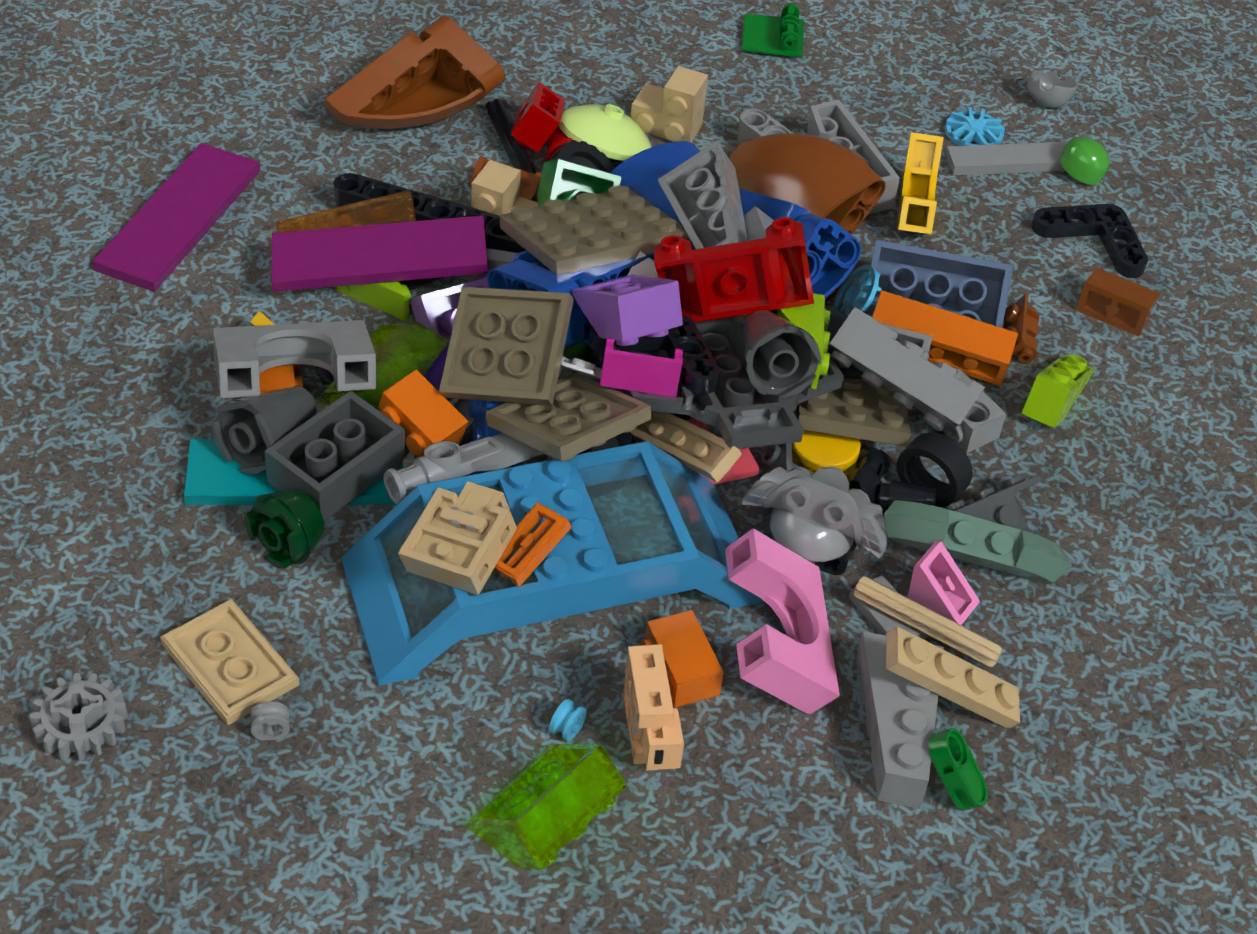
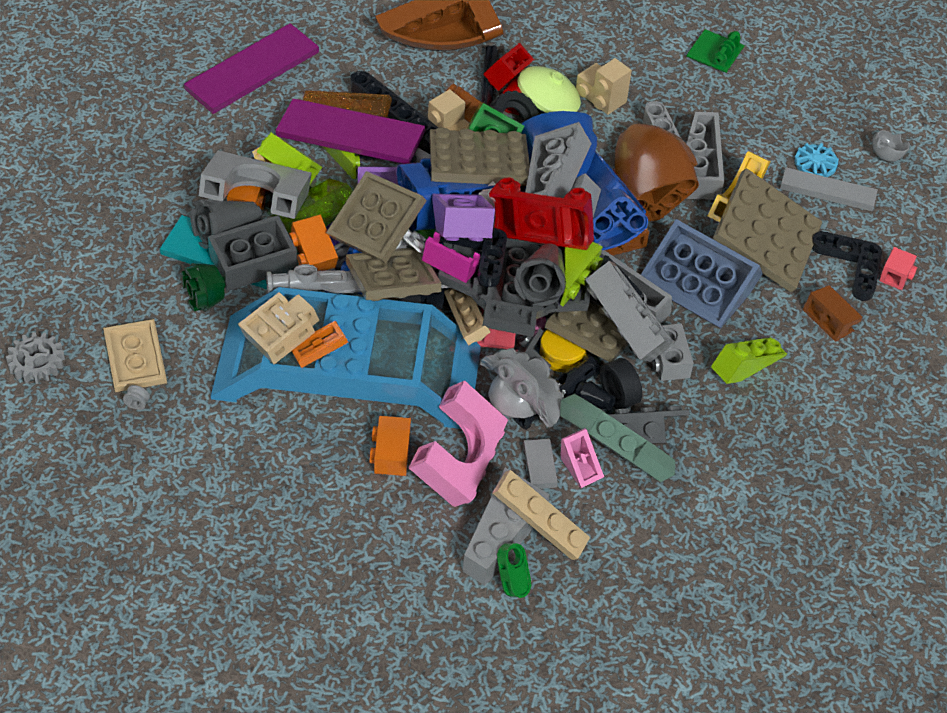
camera: 25 degrees right, 5 degrees up
(306, 304) = (285, 154): none -> lime slope
(549, 804) = (264, 502): clear neon green slope -> none
(567, 720) = (303, 457): medium azure bush -> none
(649, 710) = (349, 466): light nougat piece -> none
(860, 292) = (645, 252): medium azure wheel -> none
(928, 621) = (556, 477): tan axle -> none
(958, 340) = (689, 301): orange brick -> none
(984, 220) = (768, 229): none -> dark tan plate
(1024, 321) = (743, 317): dark orange hinge -> none
(1085, 160) = (878, 206): bright green hair -> none
(1157, 225) = (899, 268): none -> coral brick

